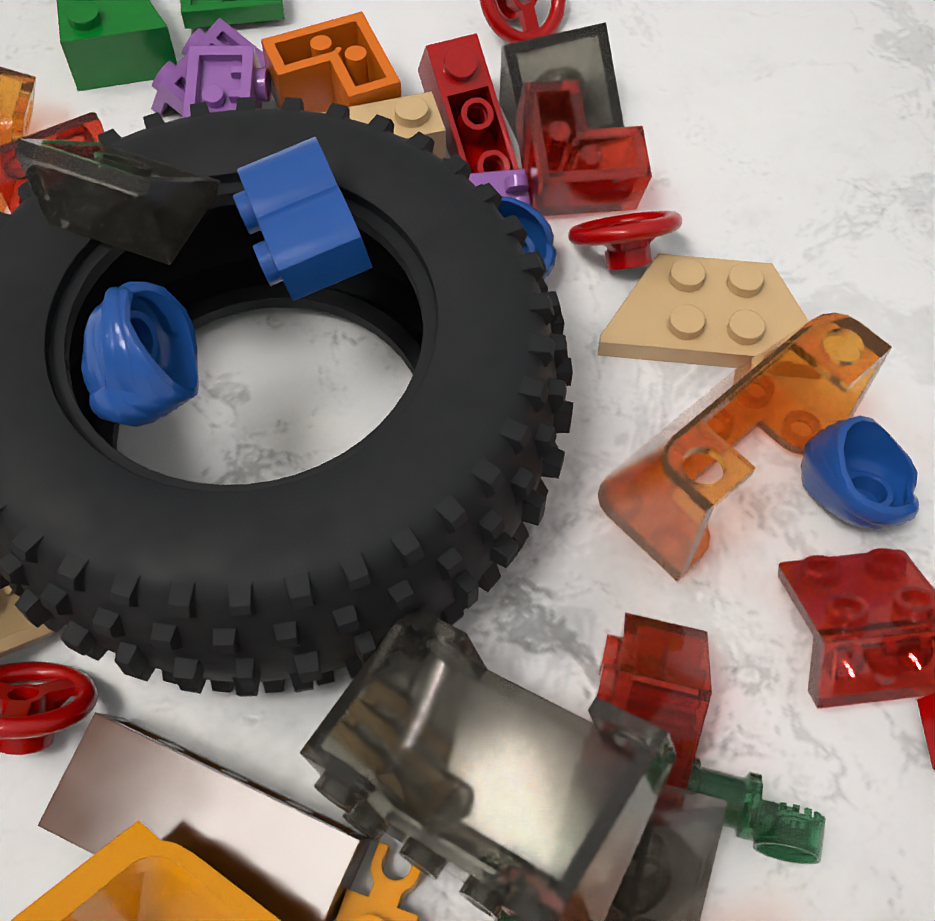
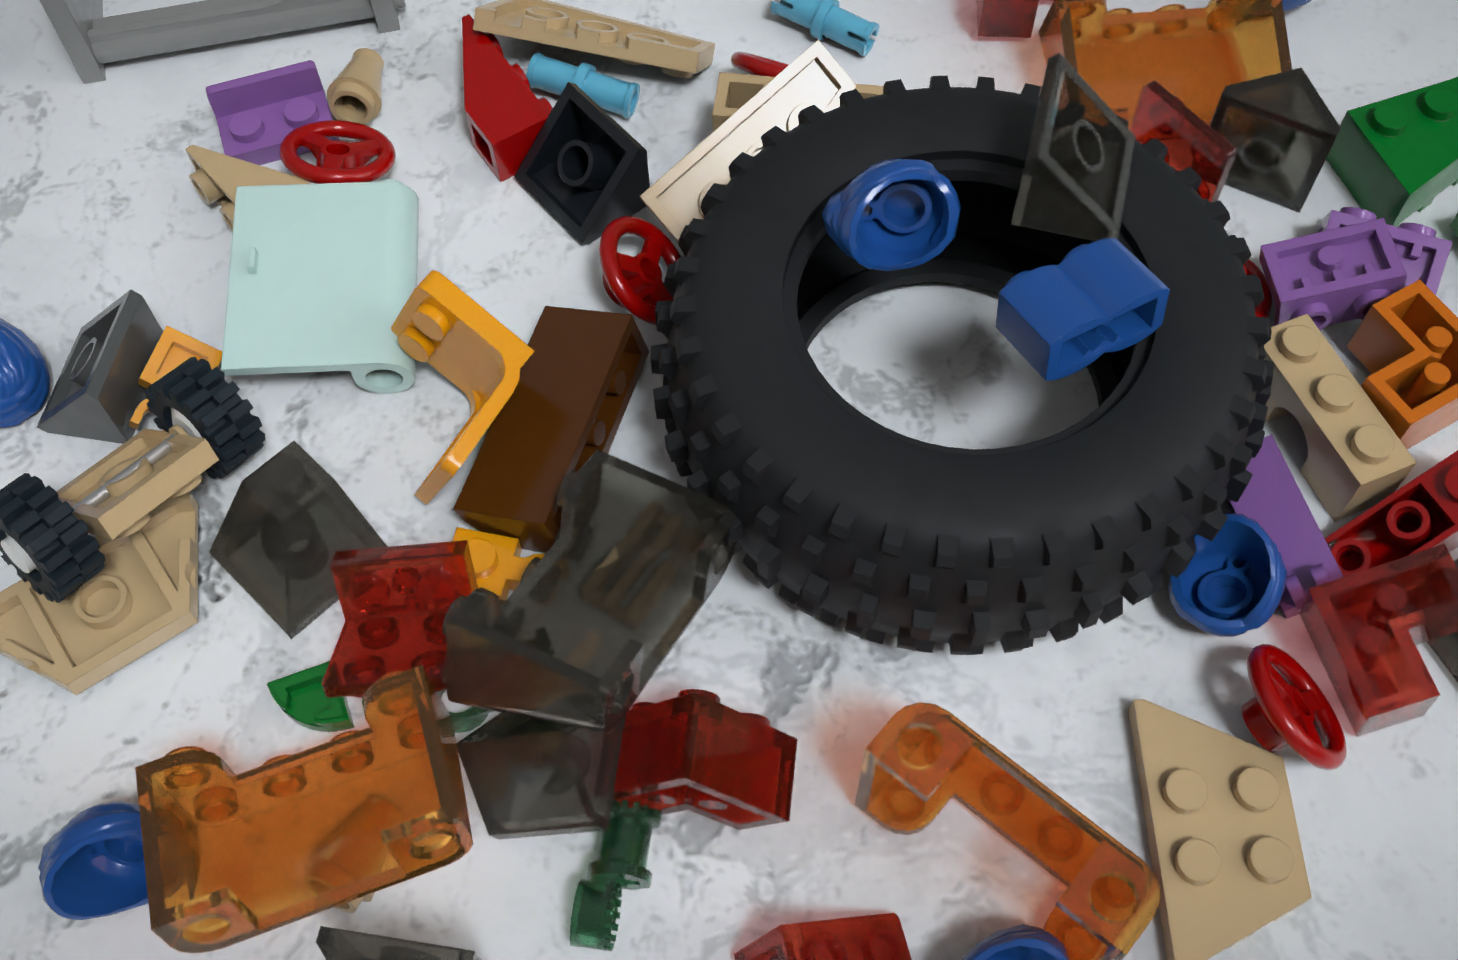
camera: 85 degrees right, 0 degrees up
(66, 81) = (1278, 135): none -> clear smoke slope

